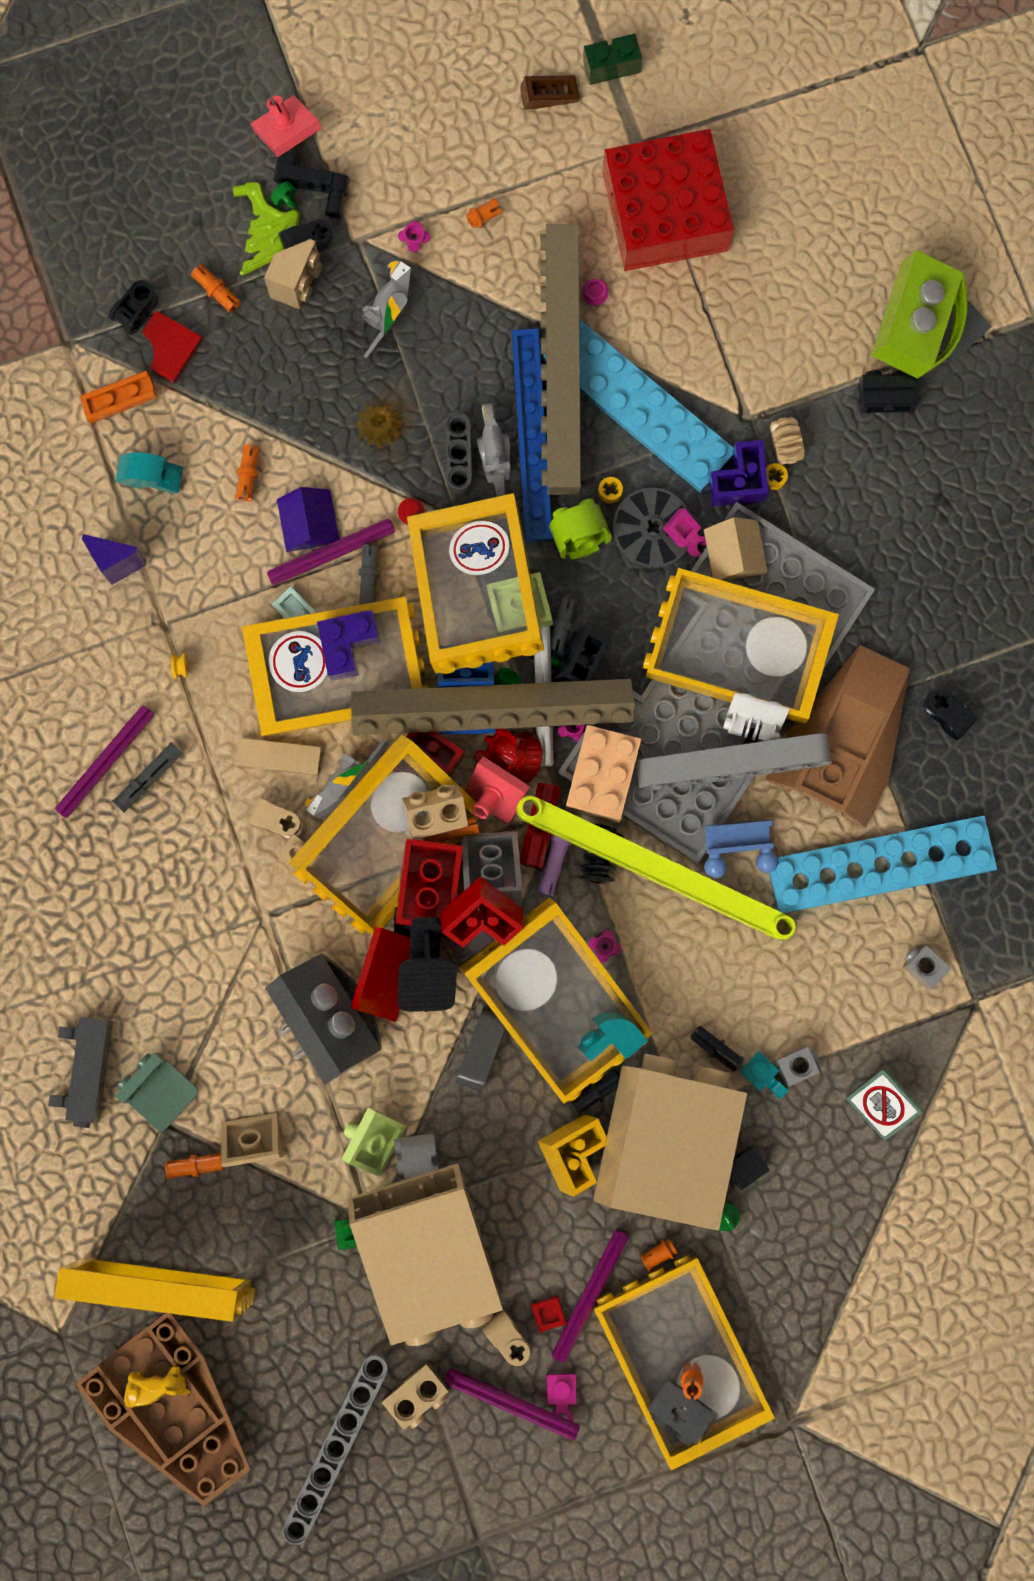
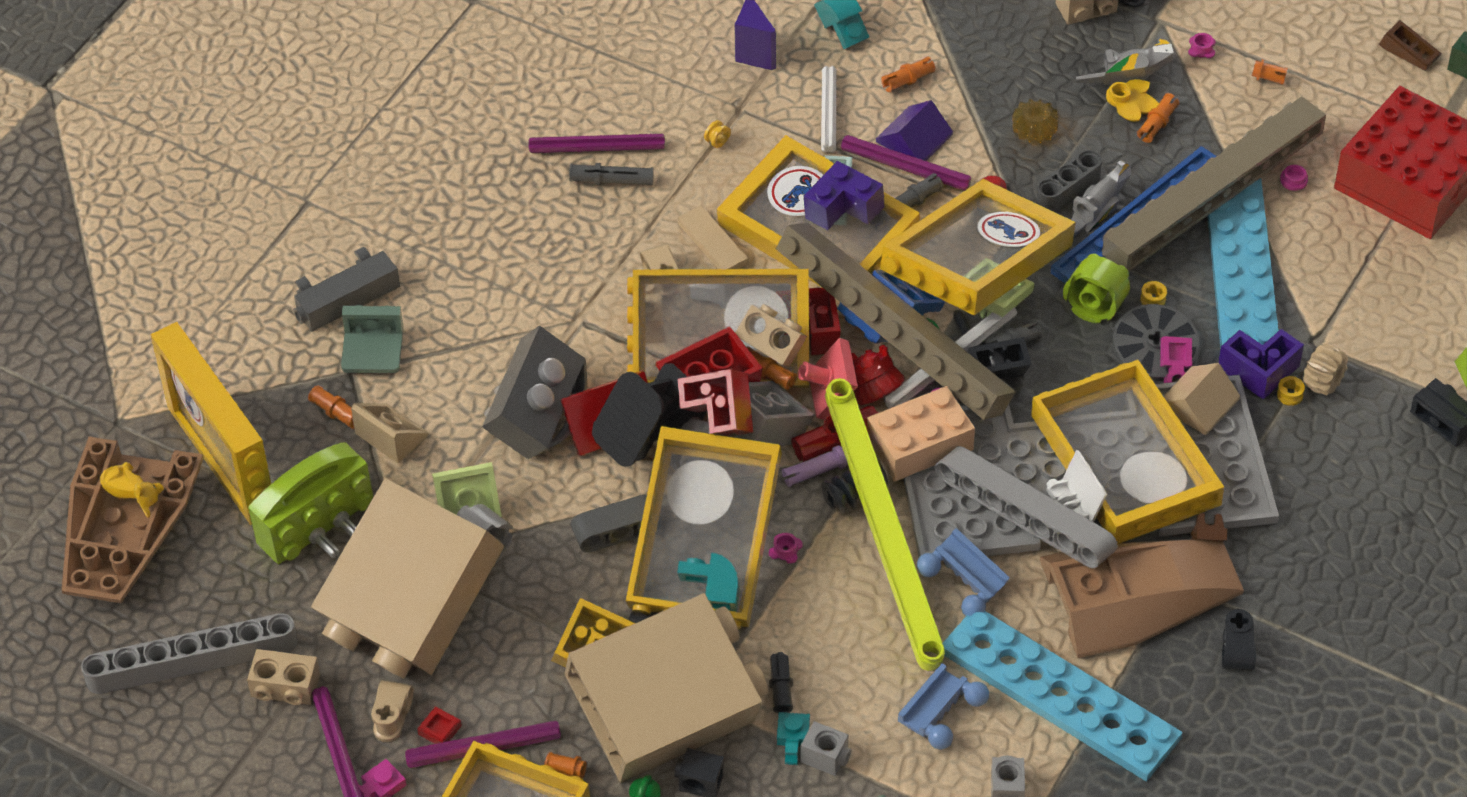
camera: 50 degrees right, 30 degrees down
(227, 560) = (828, 116): none -> white axle
(281, 1267) = (310, 502): none -> lime piece
(421, 331) = (1131, 99): none -> yellow plate
(454, 333) = (1158, 118): none -> orange pin
(821, 959) = (934, 700): none -> medium blue gear
(849, 649) = (1209, 532): none -> reddish brown tile

